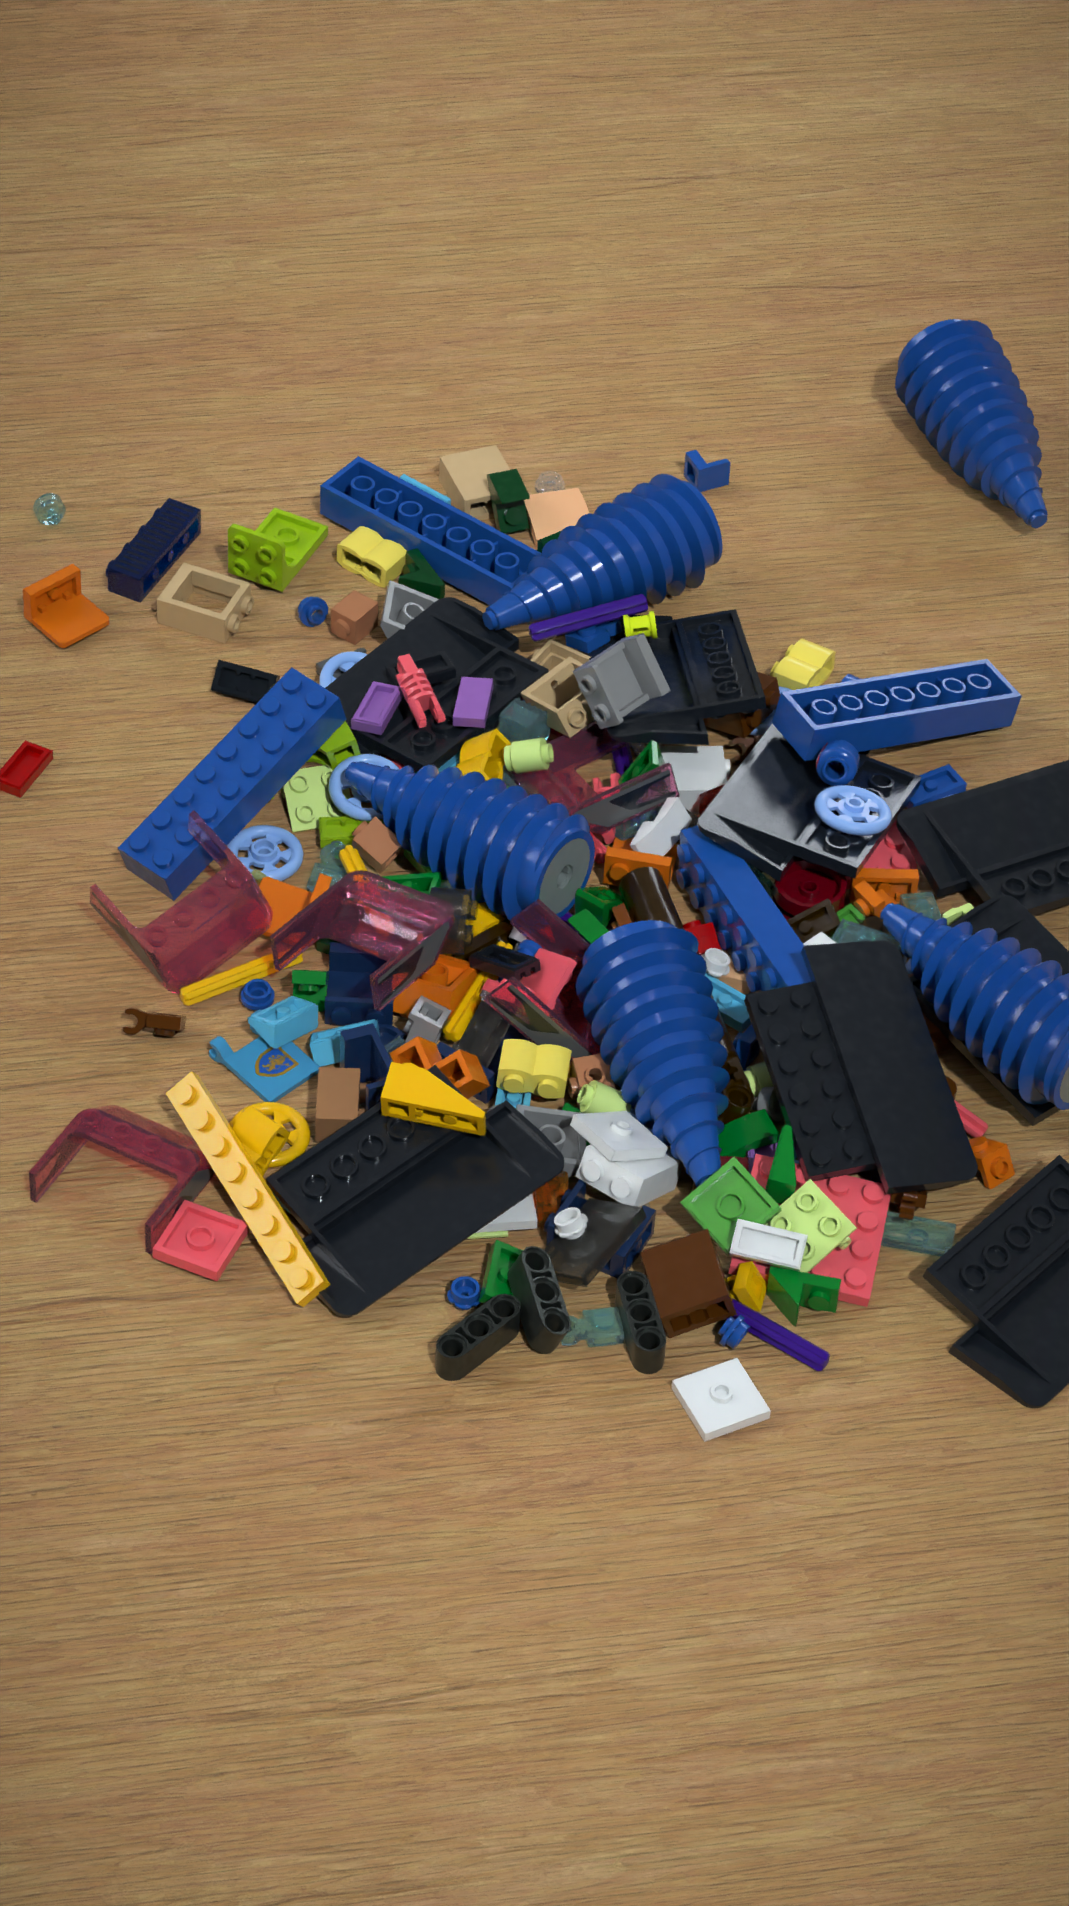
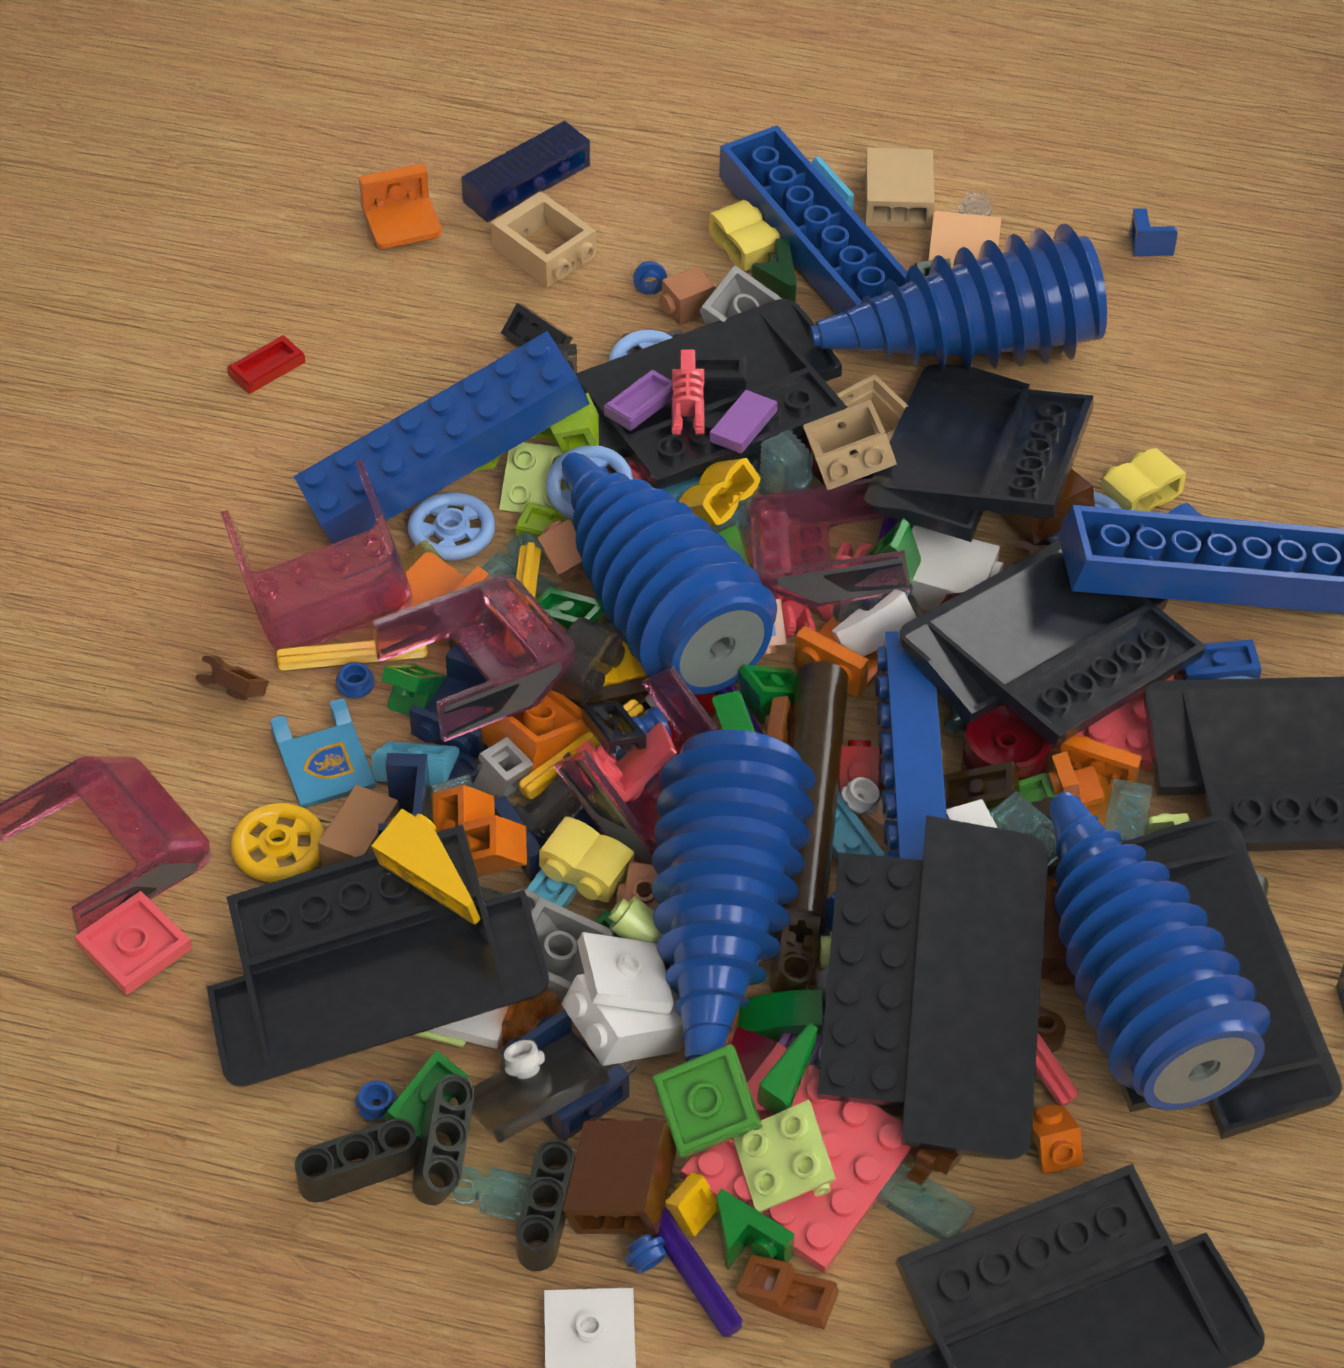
camera: 25 degrees right, 5 degrees up
(49, 509) = (447, 102): clear light blue tile -> none
(248, 1189) = (203, 904): yellow plate -> none
(259, 1136) = (236, 853): yellow brick -> none
(275, 549) = (648, 202): lime bracket -> none
(285, 1021) = (362, 719): medium azure slope -> none
(508, 499) = (913, 212): dark green slope -> none
(528, 755) = (768, 498): yellowish green brick -> none
(588, 617) = (921, 361): dark purple axle -> none
(593, 637) = (921, 382): blue plate -> none
(621, 680) = (896, 442): light grey panel -> none
(640, 624) = (973, 386): neon yellow bush -> none
(768, 1245) = (725, 1164): white tile -> none
(837, 762) = (1105, 604): blue head -> none
(844, 1327) = (780, 1290): none -> dark orange slope
(853, 810) = (1094, 665): light blue plate -> none

